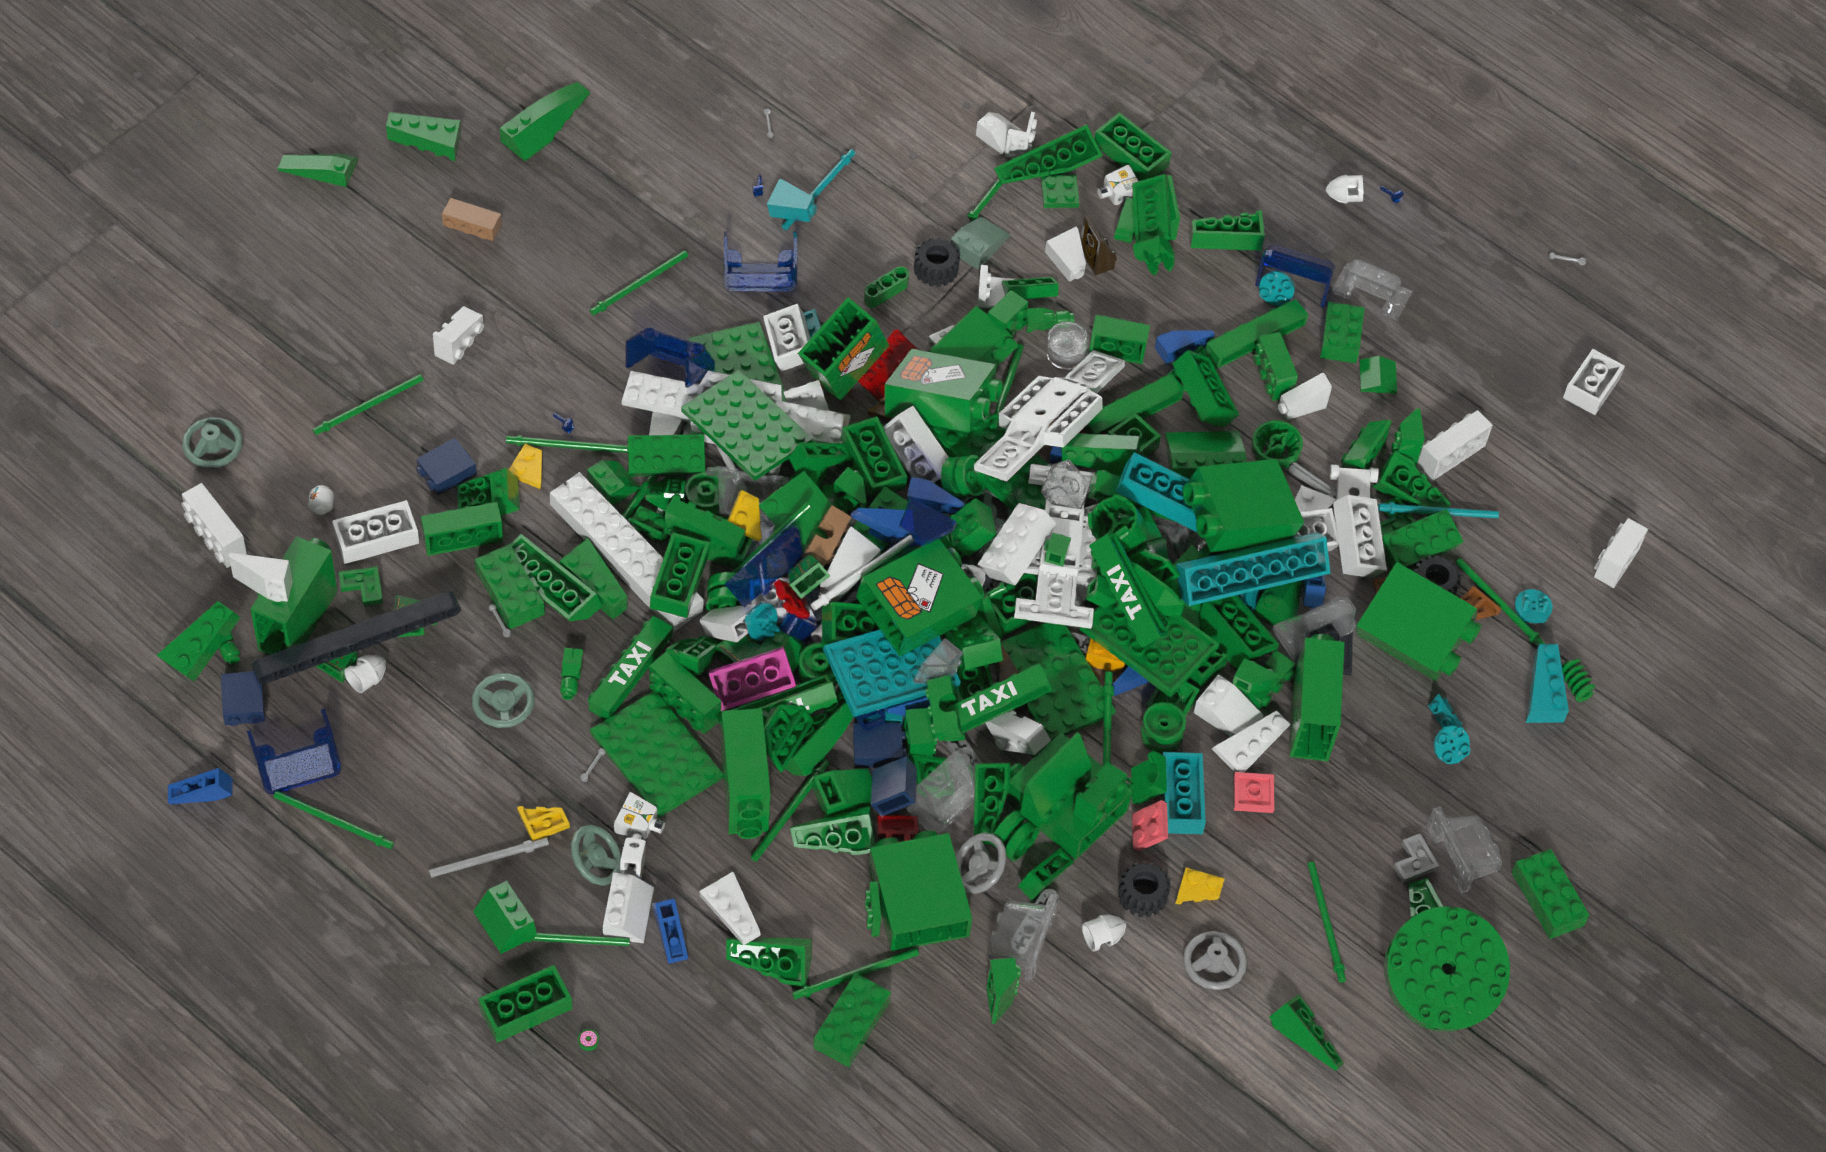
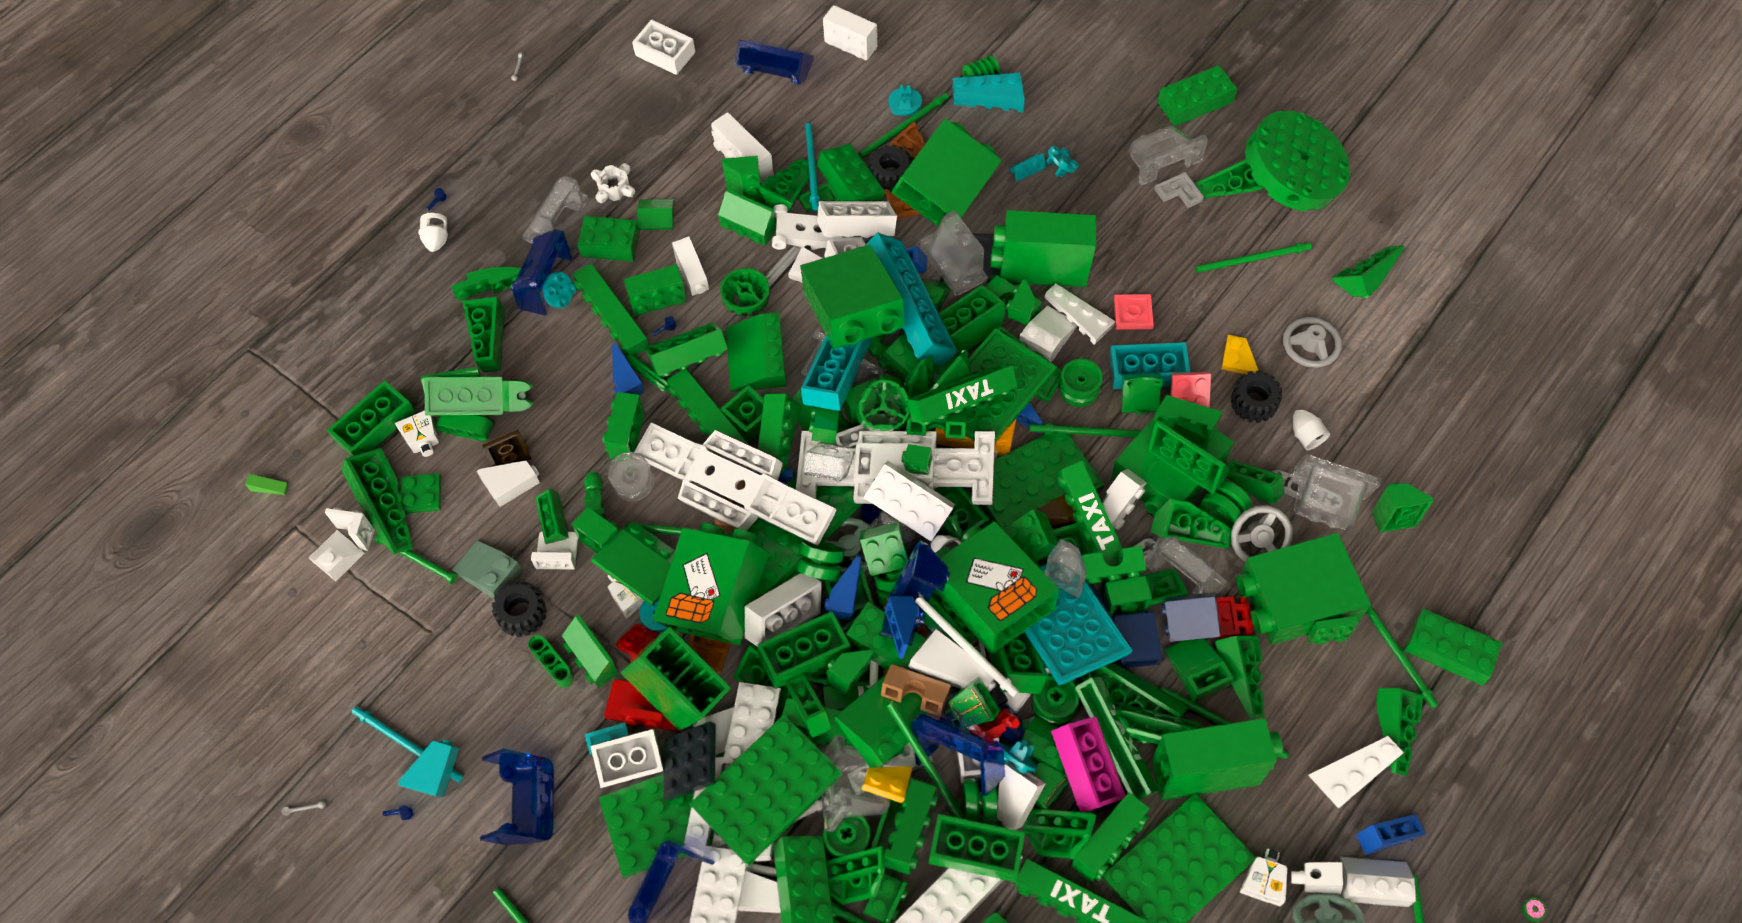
camera: 85 degrees left, 5 degrees up
(779, 375) = (689, 761): none -> black plate
(897, 311) = (588, 653): none -> slope
(1072, 78) = (265, 485): none -> bright green piece
(1241, 383) = (670, 325): none -> clear blue hand
(1289, 228) = (481, 280): none -> green slope
(1405, 345) = (609, 173): none -> white piece
(1587, 481) = (773, 61): none -> clear blue windscreen

